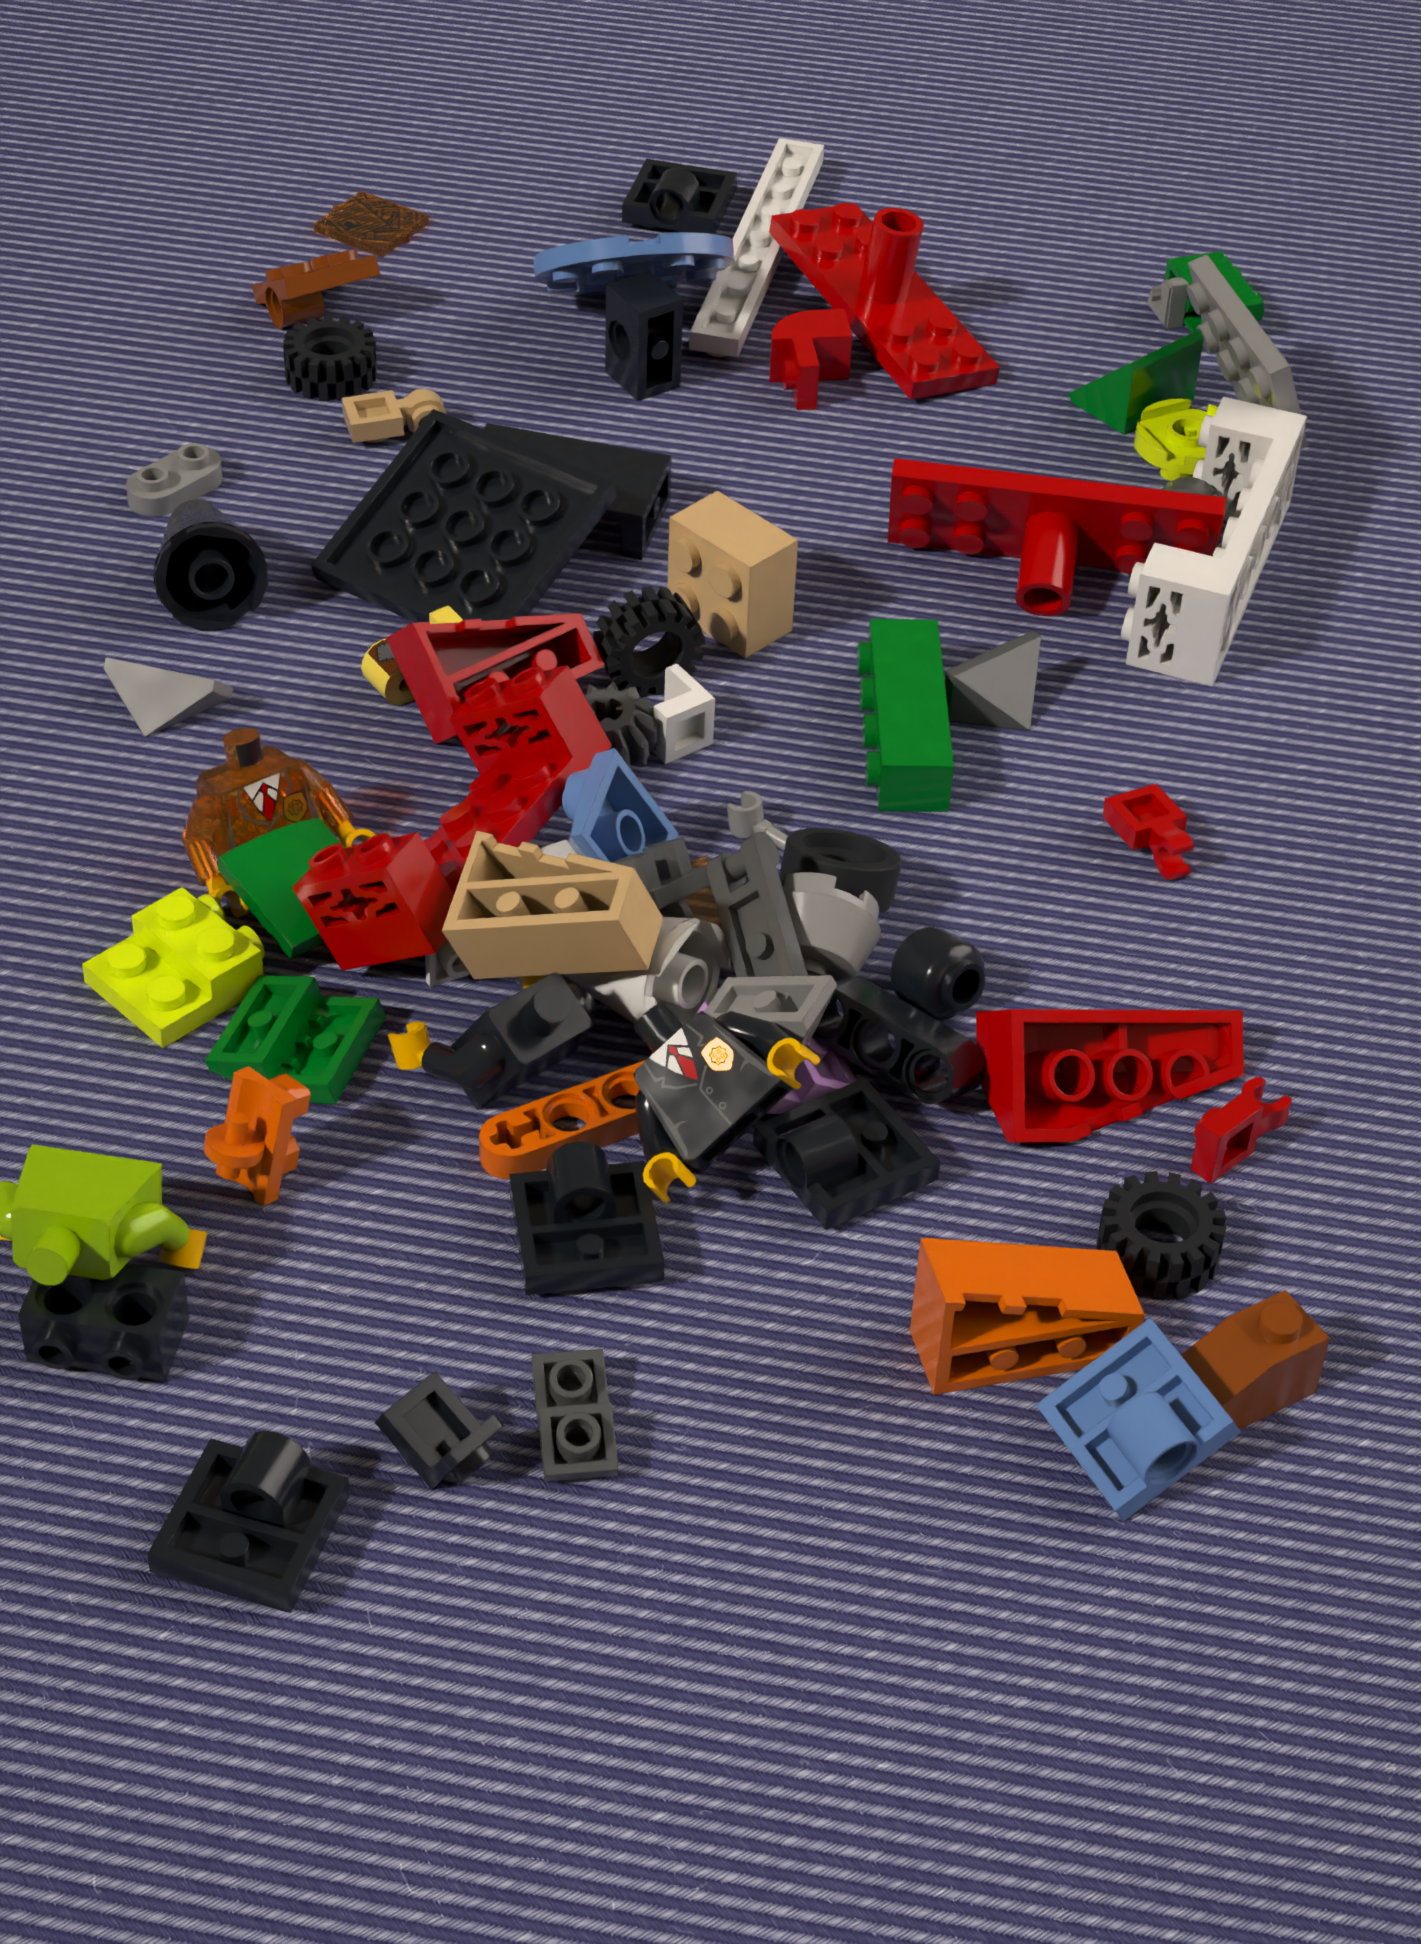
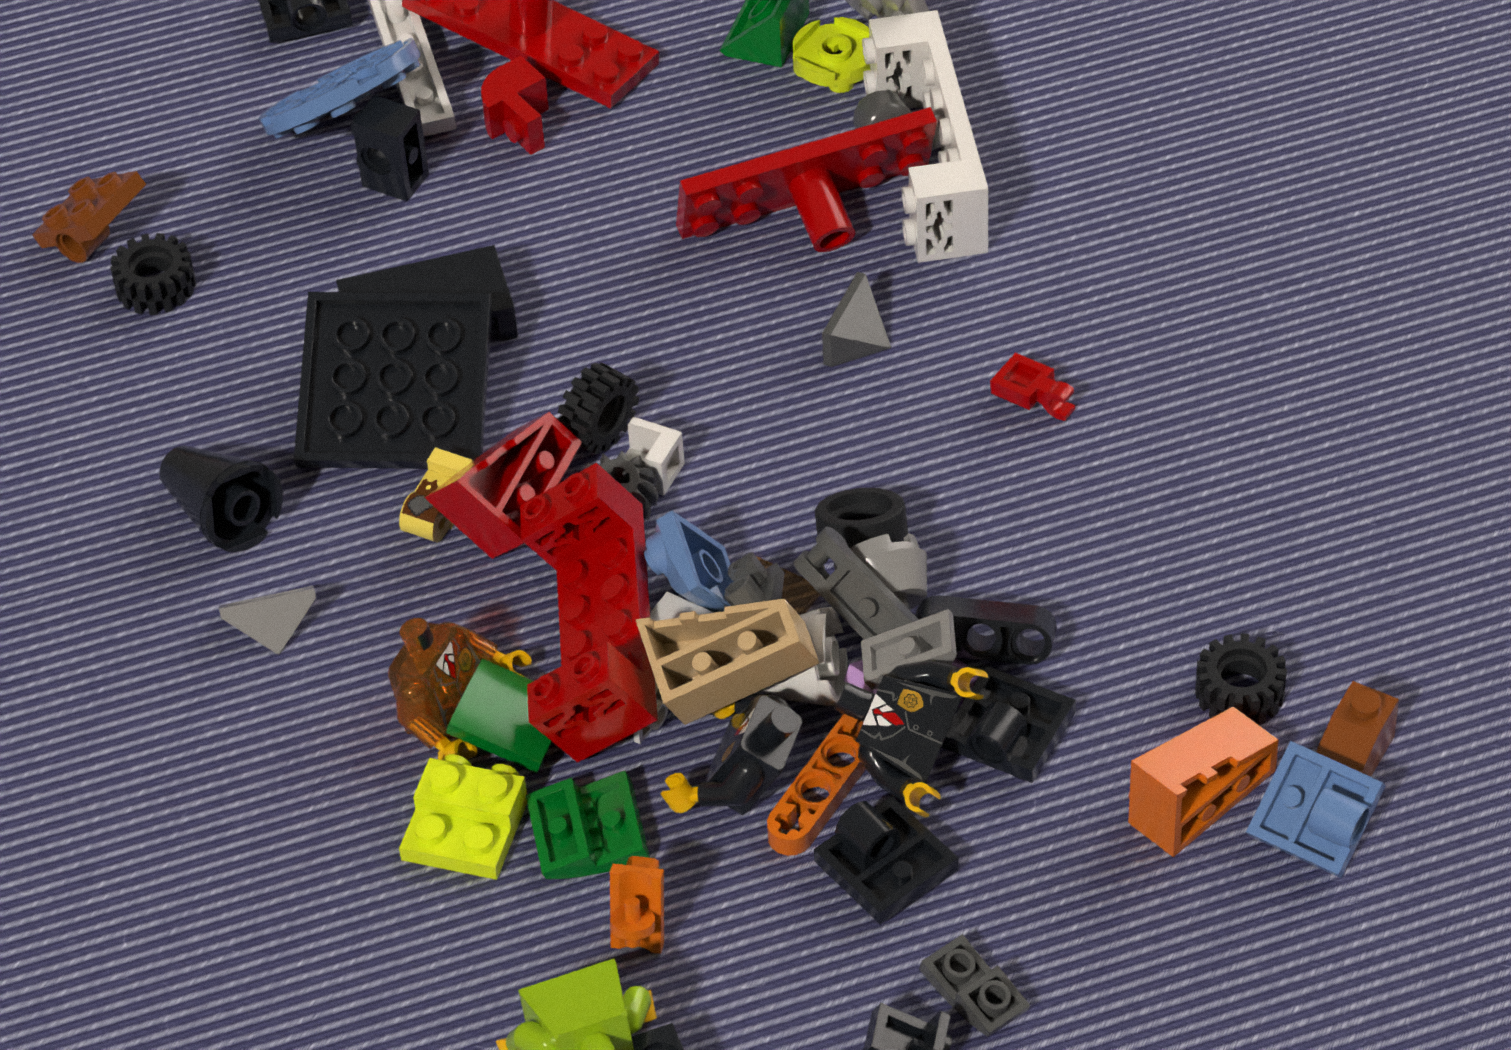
camera: 25 degrees left, 5 degrees up
(174, 480) = (125, 428): light grey plate -> none
(371, 223) = (72, 132): clear orange piece -> none
(382, 416) = (235, 307): tan plate -> none
(733, 572) = (615, 323): tan brick -> none
(750, 819) = (759, 513): light grey hand -> none
(907, 715) = (810, 378): green brick -> none
(938, 972) = (975, 566): black head -> none
(1083, 1069) = (1118, 585): red wedge -> none
(1230, 1132) = (1234, 589): red plate -> none

